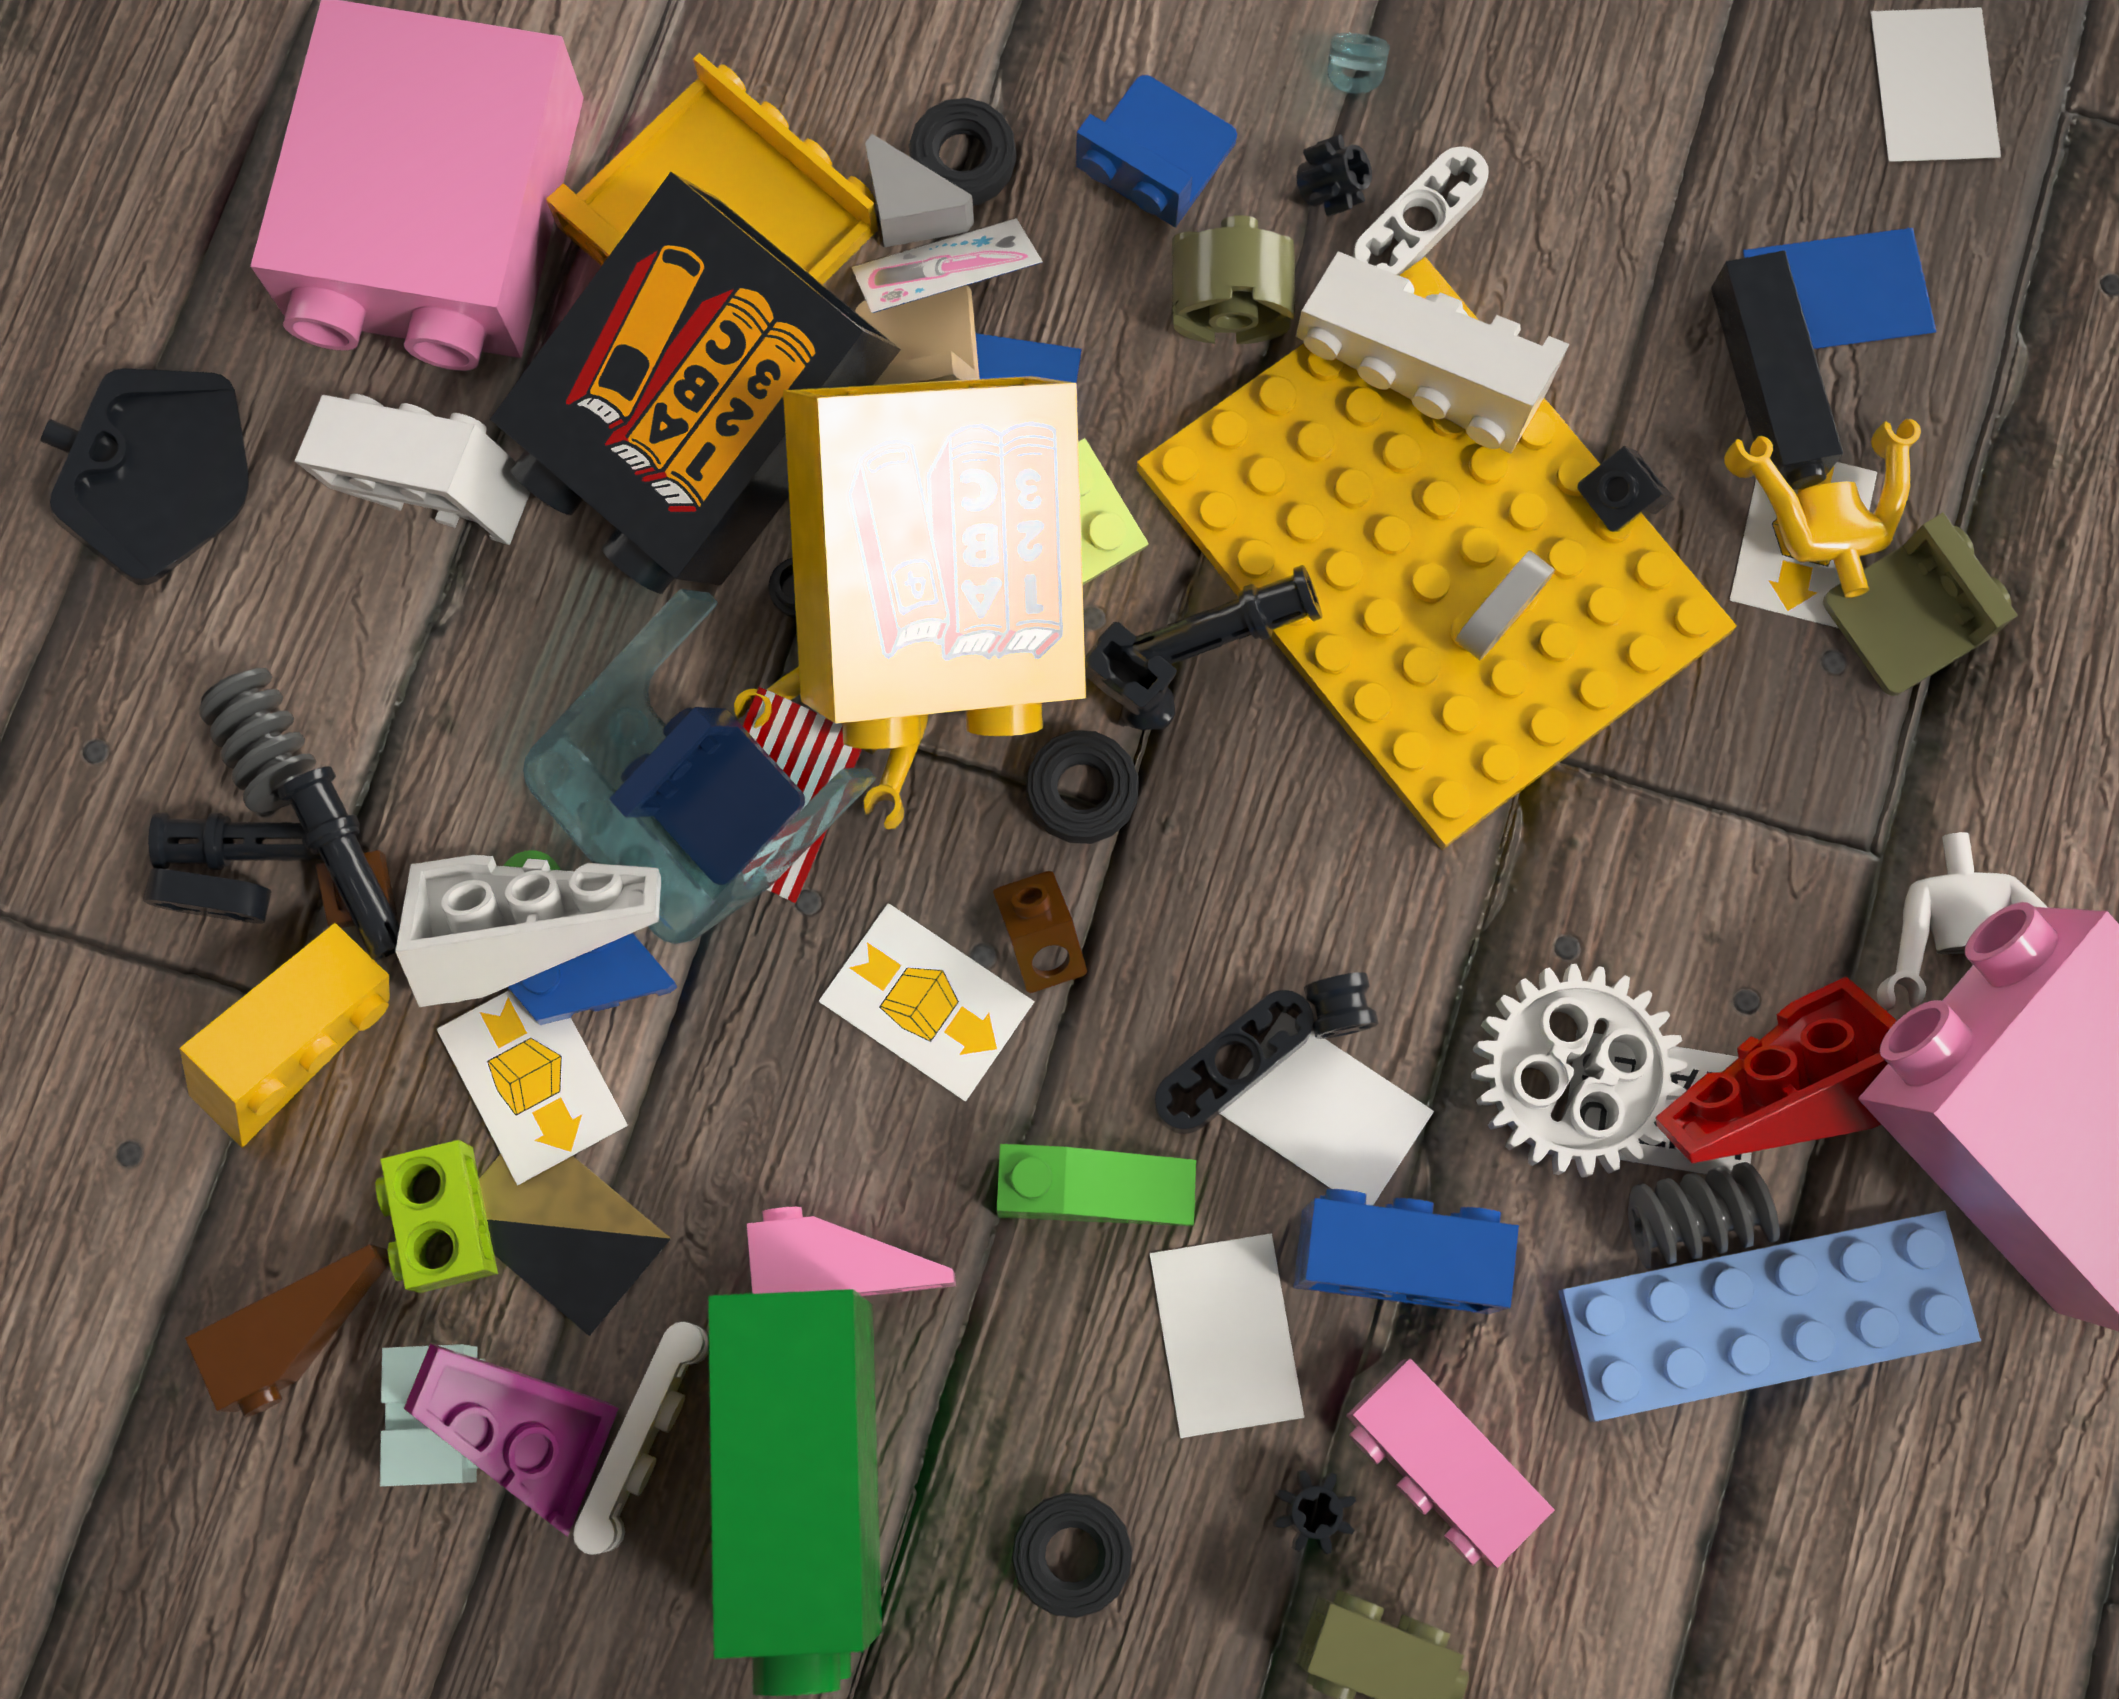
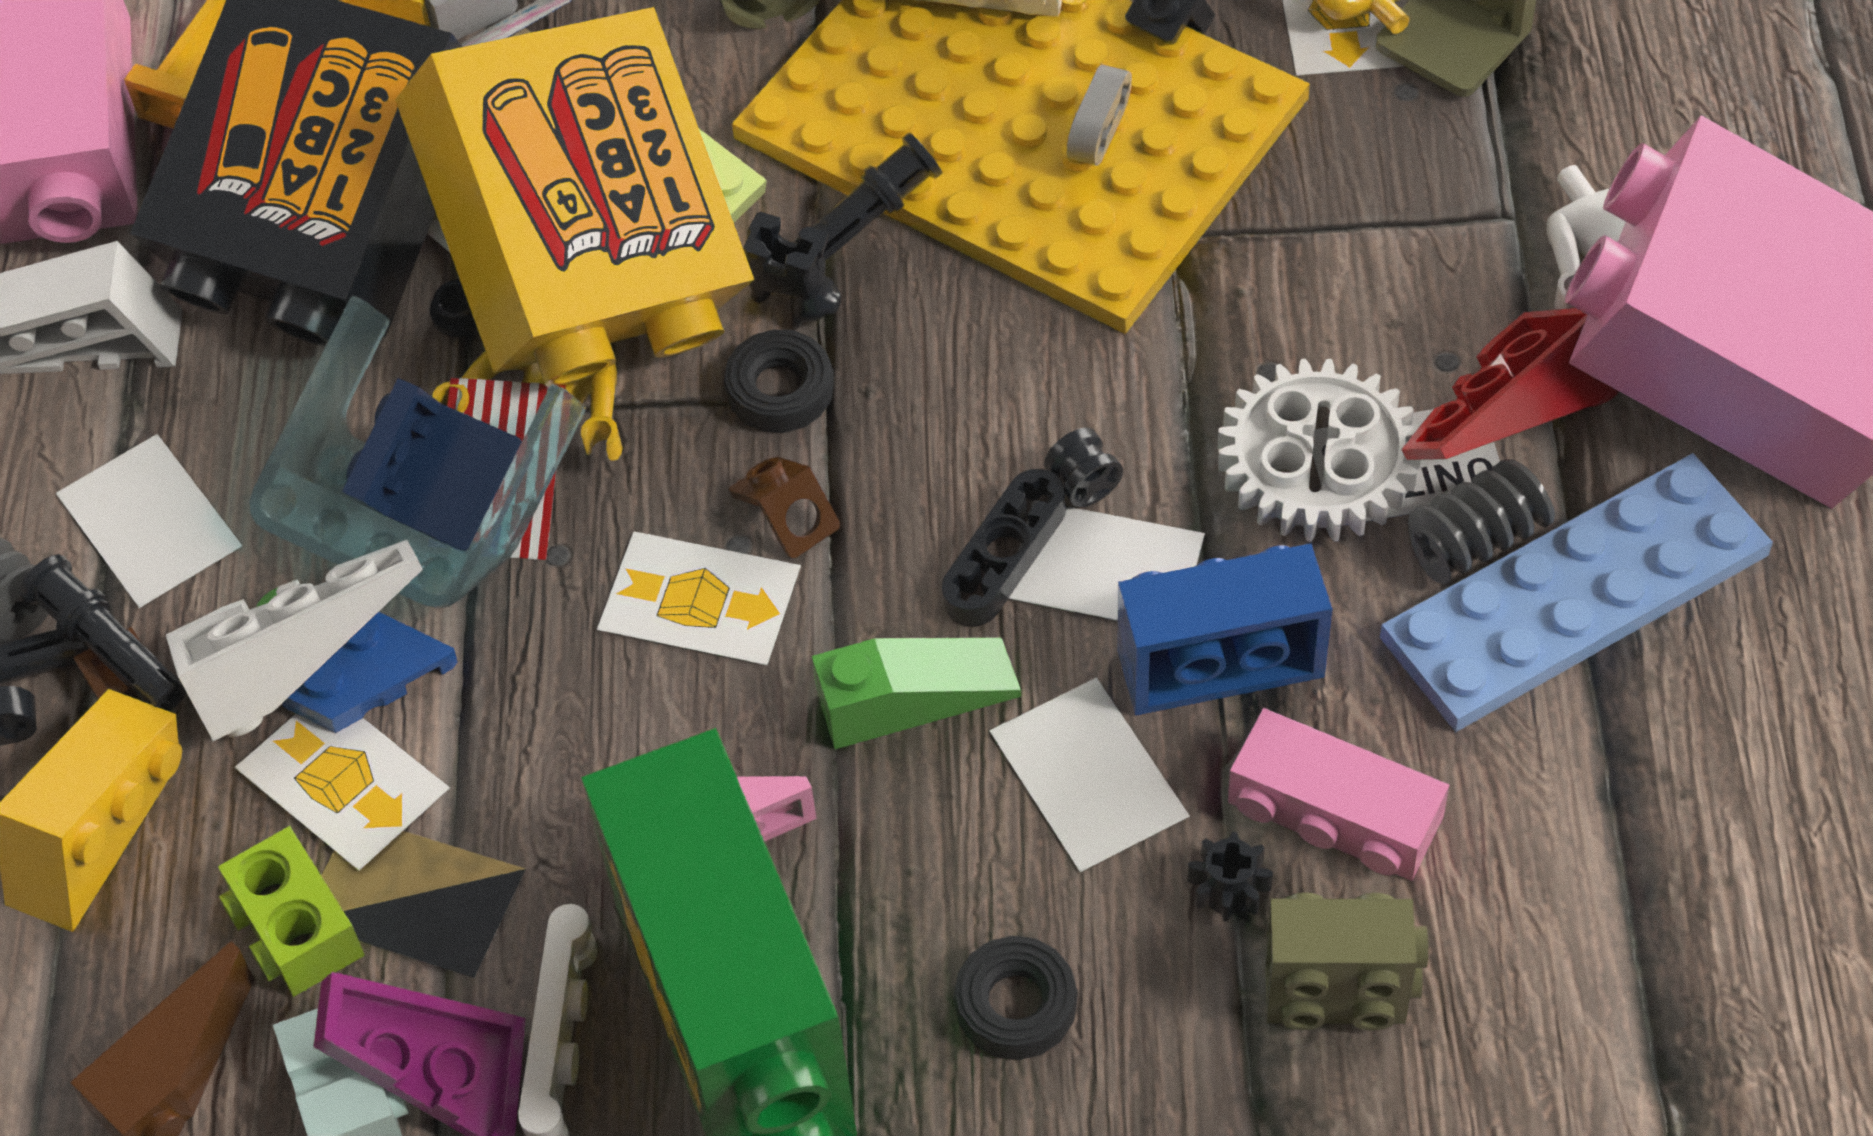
camera: 15 degrees left, 20 degrees down
(434, 717) = (148, 520): none -> white sticker

